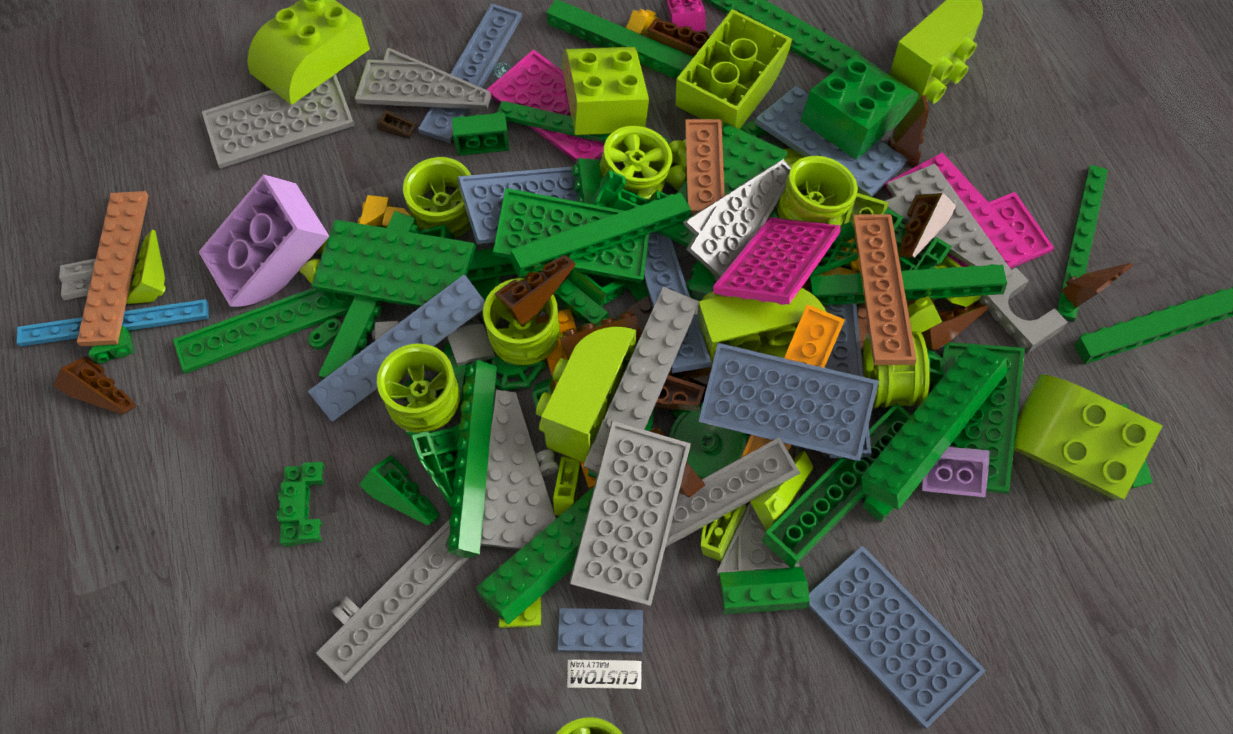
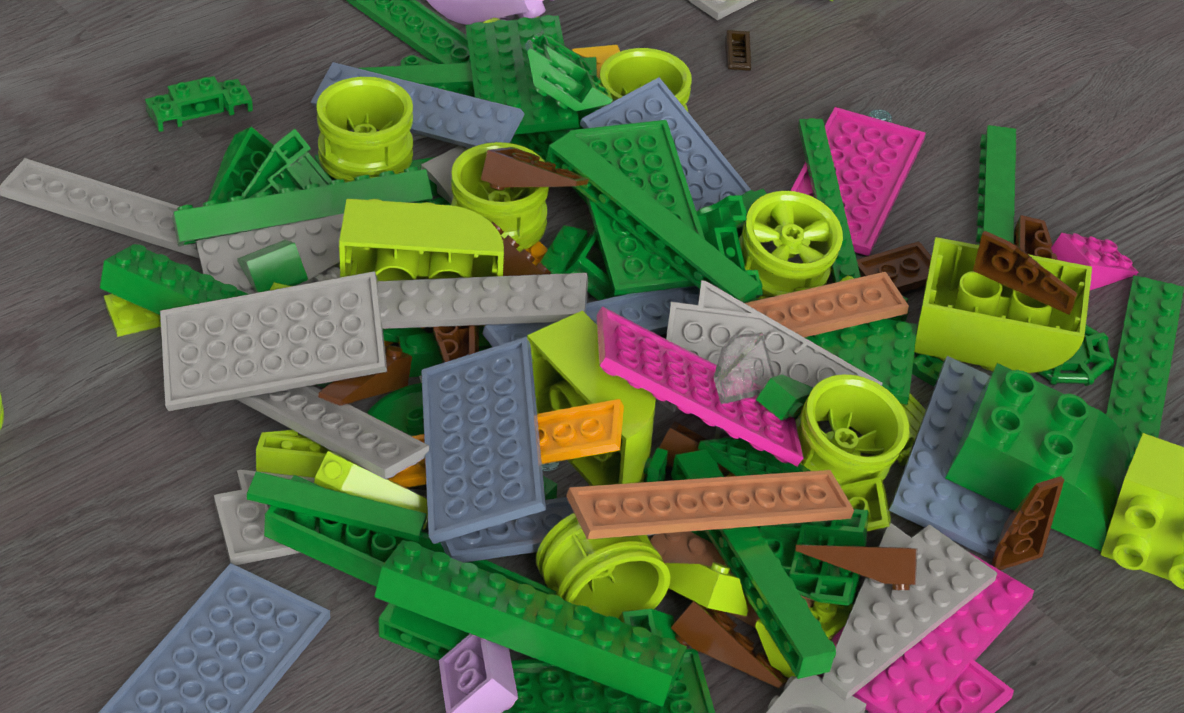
camera: 65 degrees right, 20 degrees down
(348, 606) = (84, 167): light grey wheel -> none
(413, 83) = (800, 45): light grey wing -> none
(437, 235) = (564, 75): none -> green wedge
(474, 66) = (857, 91): sand blue plate -> none
(480, 134) = (760, 113): green brick -> none
(528, 495) = (273, 264): none -> green slope
(600, 630) = (127, 386): sand blue plate -> none
(604, 89) = (890, 190): lime brick -> none
(604, 674) = (73, 405): white sticker -> none
(641, 21) = (1043, 210): yellow slope -> none
(660, 114) = (904, 265): none -> reddish brown plate
(728, 47) = (1017, 270): none -> reddish brown wedge
(759, 229) = (742, 368): none -> clear wedge
(763, 590) = (223, 512): green slope -> none
(782, 216) = (784, 396): none -> green slope
(803, 513) = (336, 506): none -> green tile

